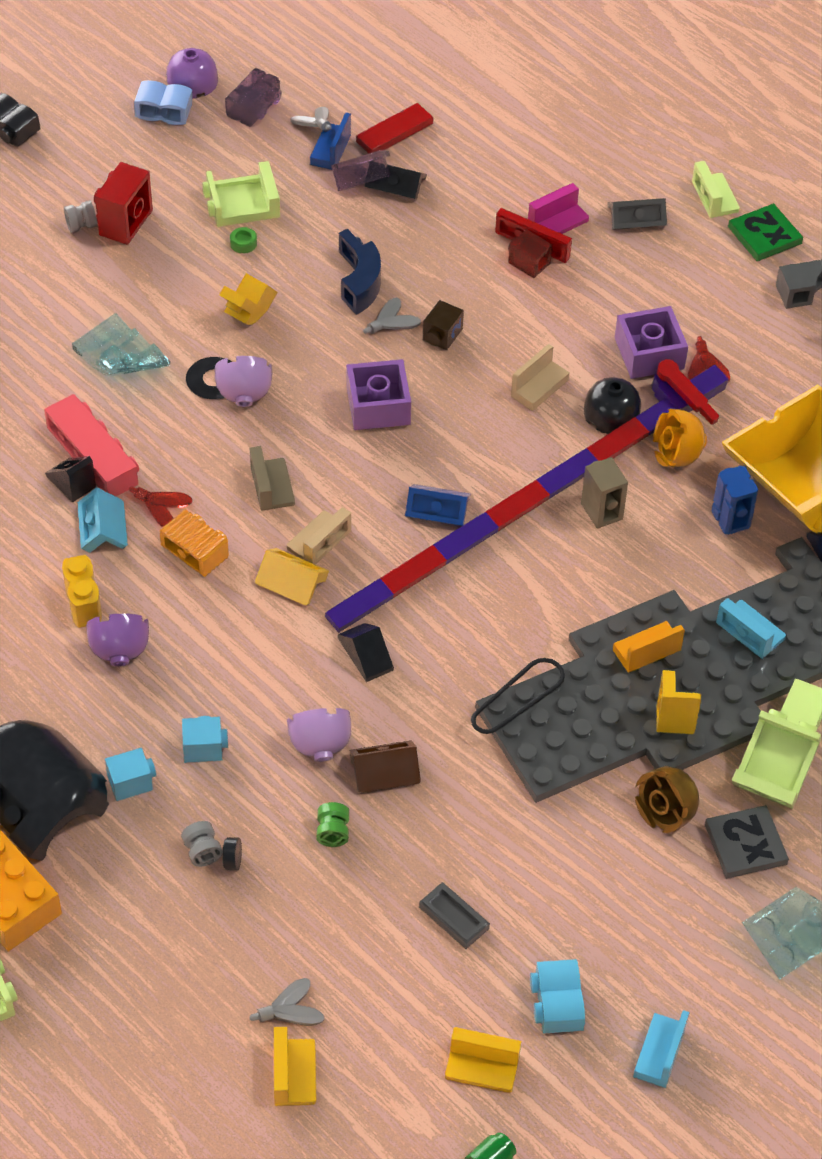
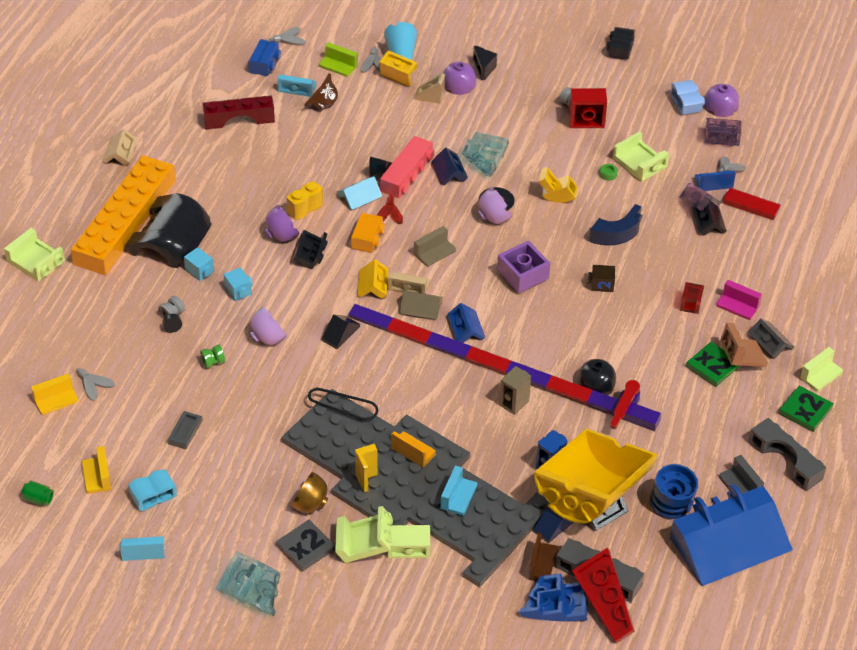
camera: 65 degrees right, 5 degrees down
(121, 402) = (448, 165): none -> dark blue panel
(186, 621) = (310, 249): none -> black bracket
(371, 536) = (420, 304): none -> dark tan panel
(385, 766) = (265, 365): reddish brown panel -> none
(390, 320) = (595, 256): light grey piece -> none
(512, 225) = (708, 294): red tile -> none
(538, 379) = (593, 335): tan panel -> none
(647, 284) = (711, 364): none -> green tile
(648, 244) = (741, 351): none -> nougat bracket
(648, 339) = (657, 375): medium lavender brick -> none
(679, 438) = (587, 415): light orange cylinder -> none
(704, 360) = (670, 414): clear red piece -> none

